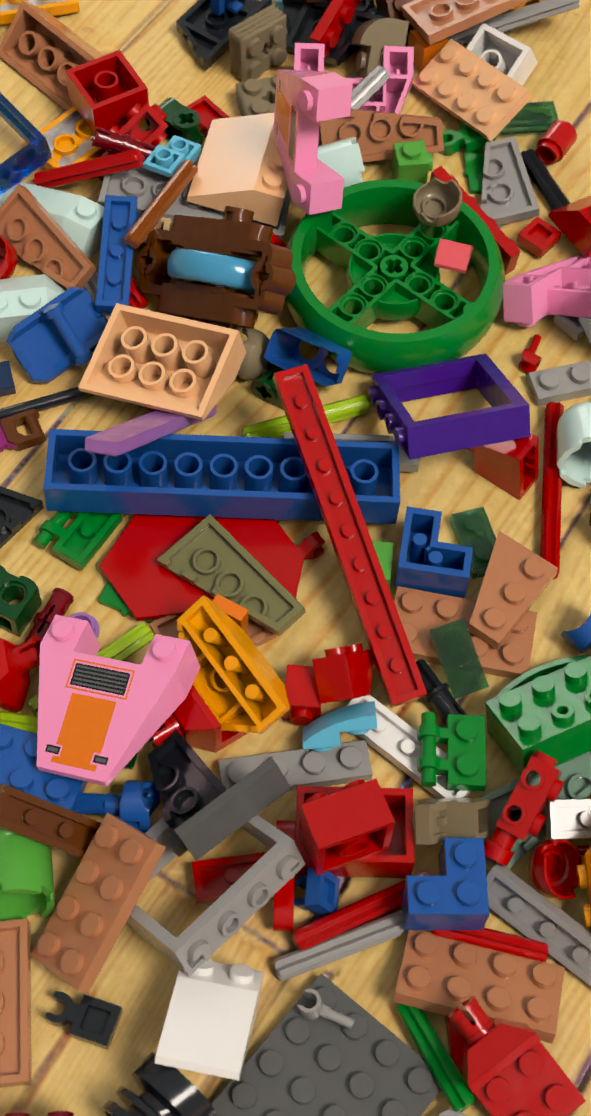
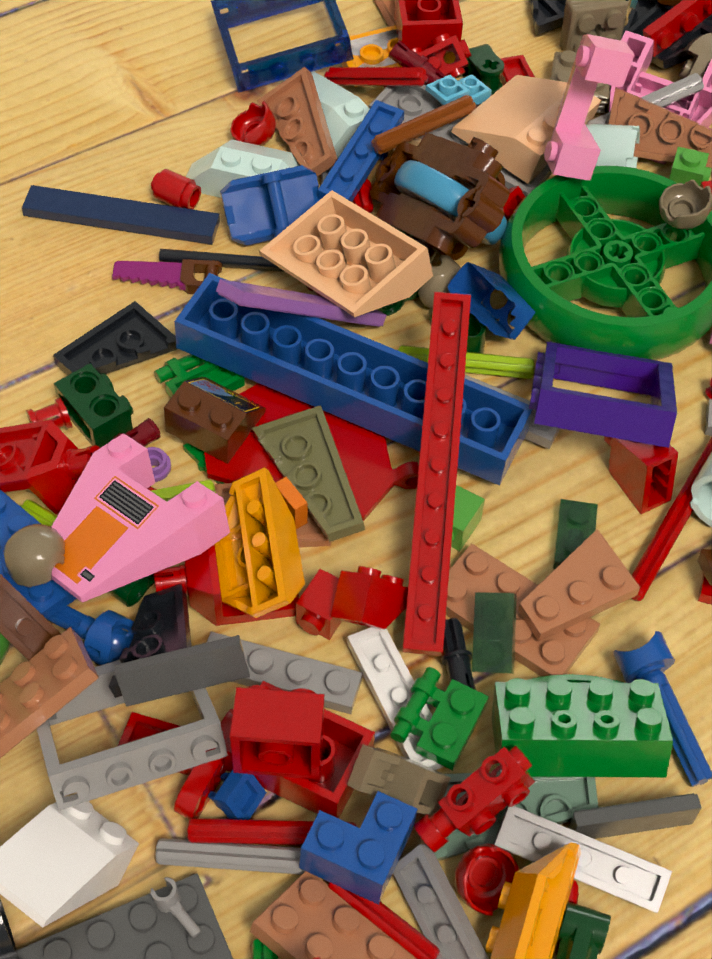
camera: 25 degrees right, 5 degrees down
(40, 761) = (33, 554): none -> dark tan hair
(117, 564) = (211, 417): none -> reddish brown slope
(325, 731) = (328, 646): medium azure slope -> none
(428, 563) = (510, 528): blue brick -> none
(453, 256) = (678, 257): coral slope -> none

